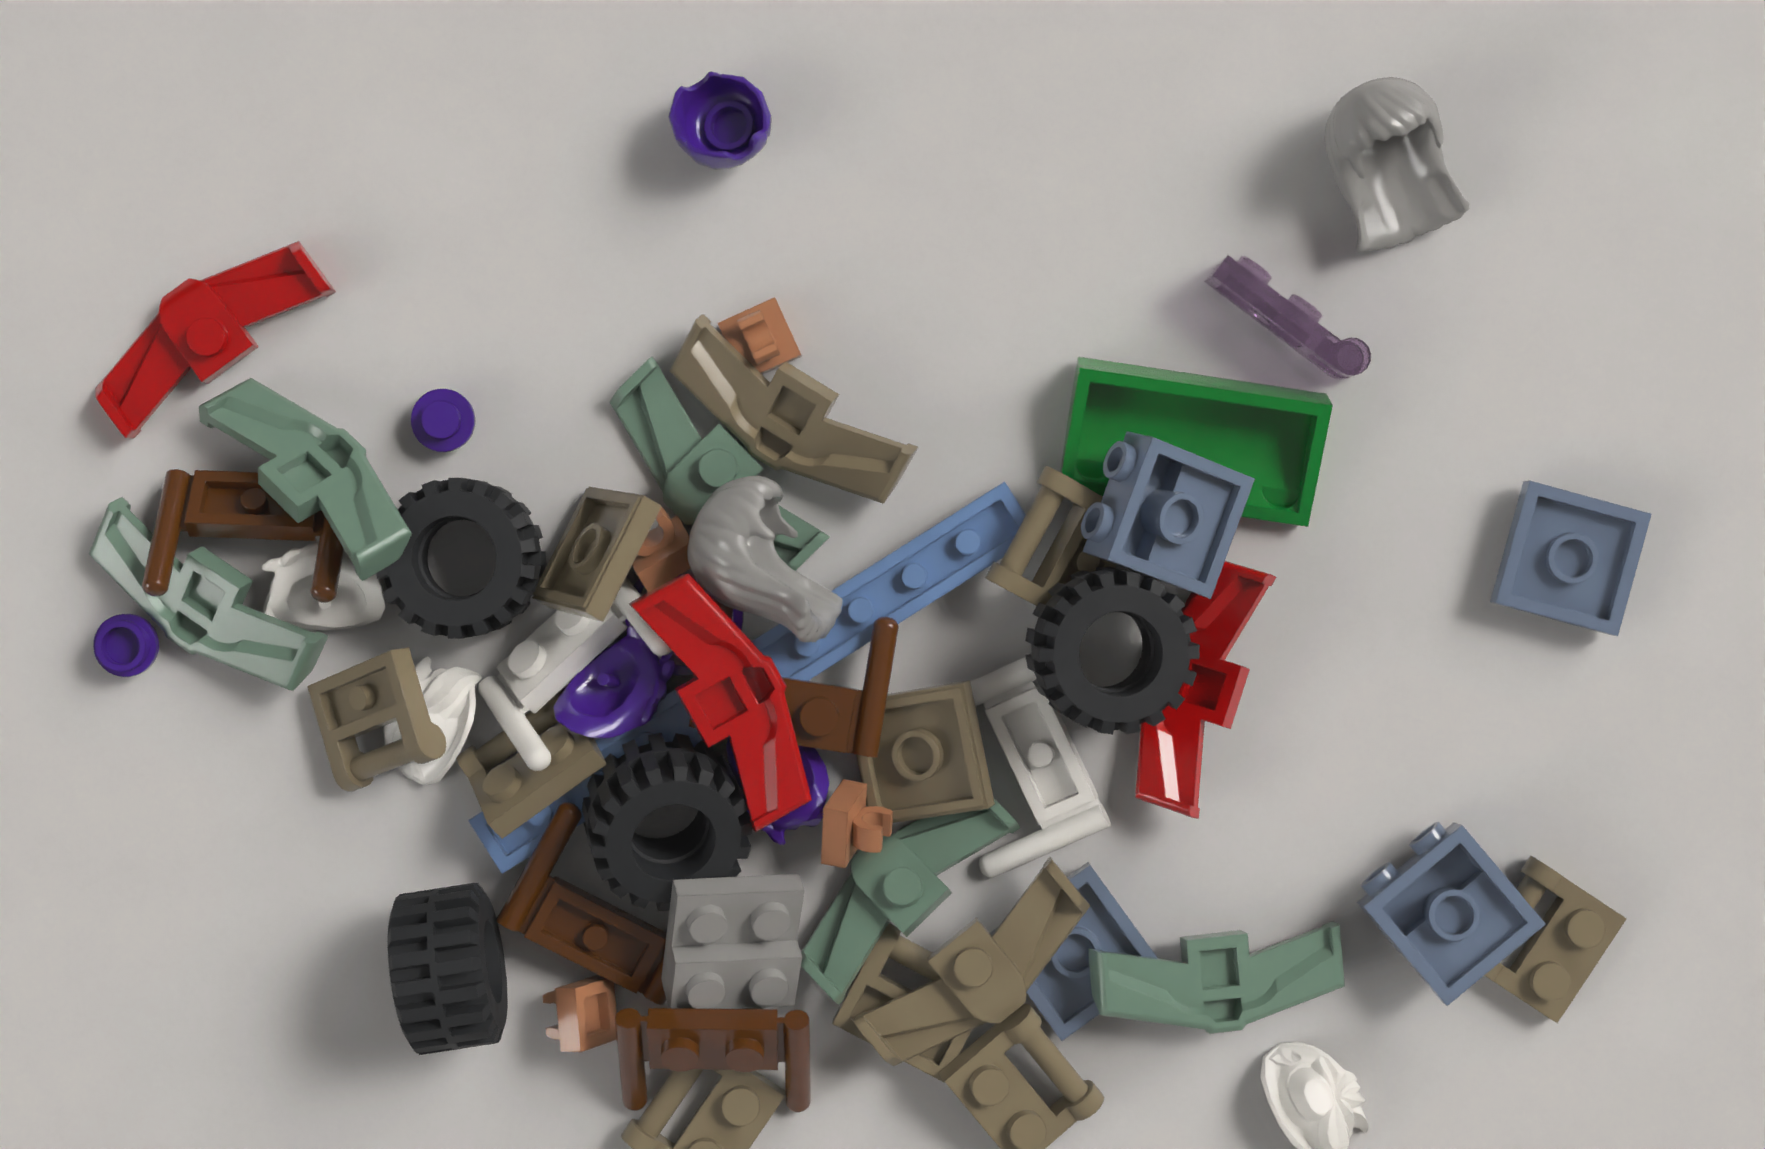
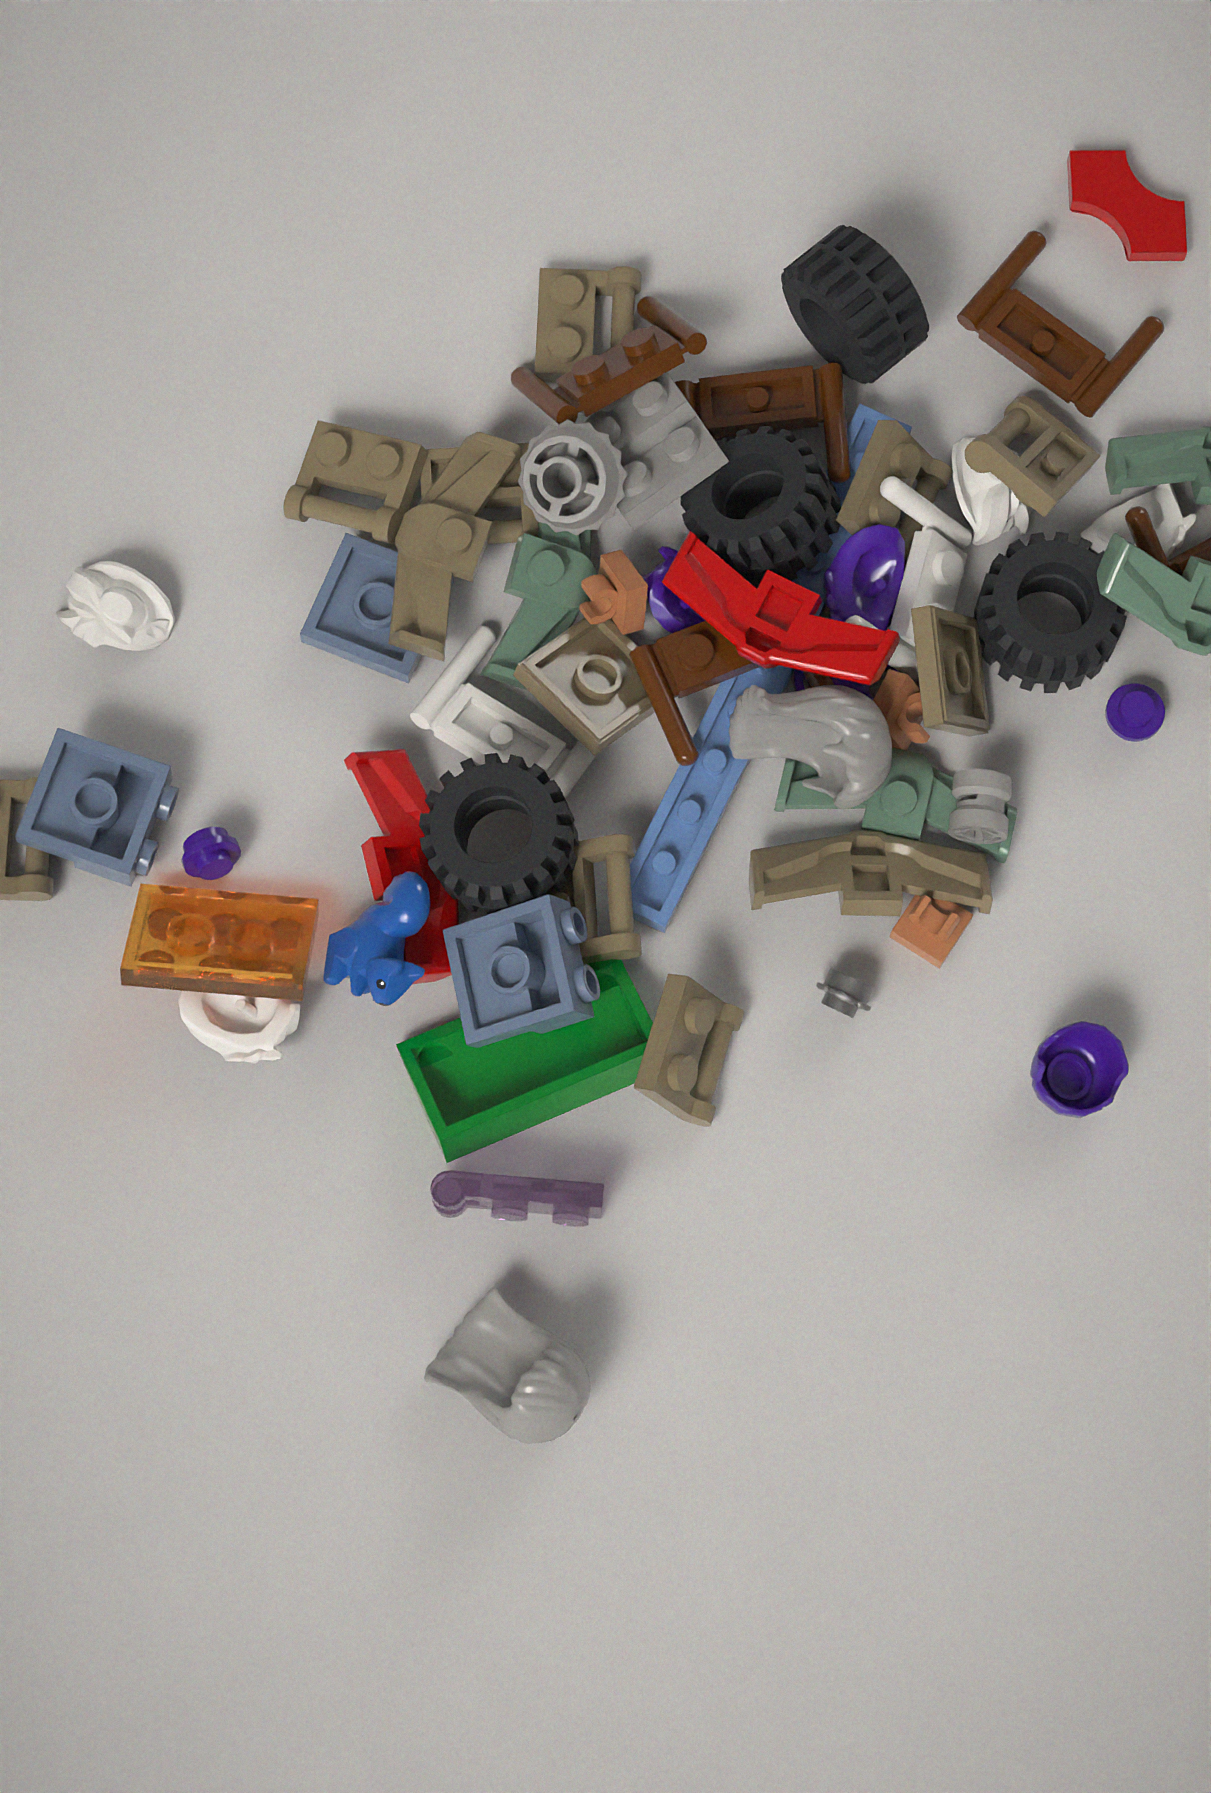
camera: 145 degrees right, 15 degrees down
(105, 894) = (1108, 190): none -> red tile
(286, 829) = (1043, 343): none -> reddish brown plate
(584, 1014) = (729, 340): nougat tile -> none
(649, 412) = (980, 806): none -> light grey wheel
(828, 957) = (572, 477): none -> light grey piece
(879, 323) = (845, 993): none -> flat silver plate
(1059, 353) = (675, 1046): none -> dark tan plate
(1218, 980) = (249, 649): sand green plate -> none
(1281, 620) = (374, 944): none -> blue animal
(1368, 806) = (210, 853): none -> dark purple plate
(1414, 713) = (220, 942): none -> clear orange plate
(1433, 638) = (239, 1025): none -> white hat
(1570, 558) = (163, 1149): sand blue plate -> none

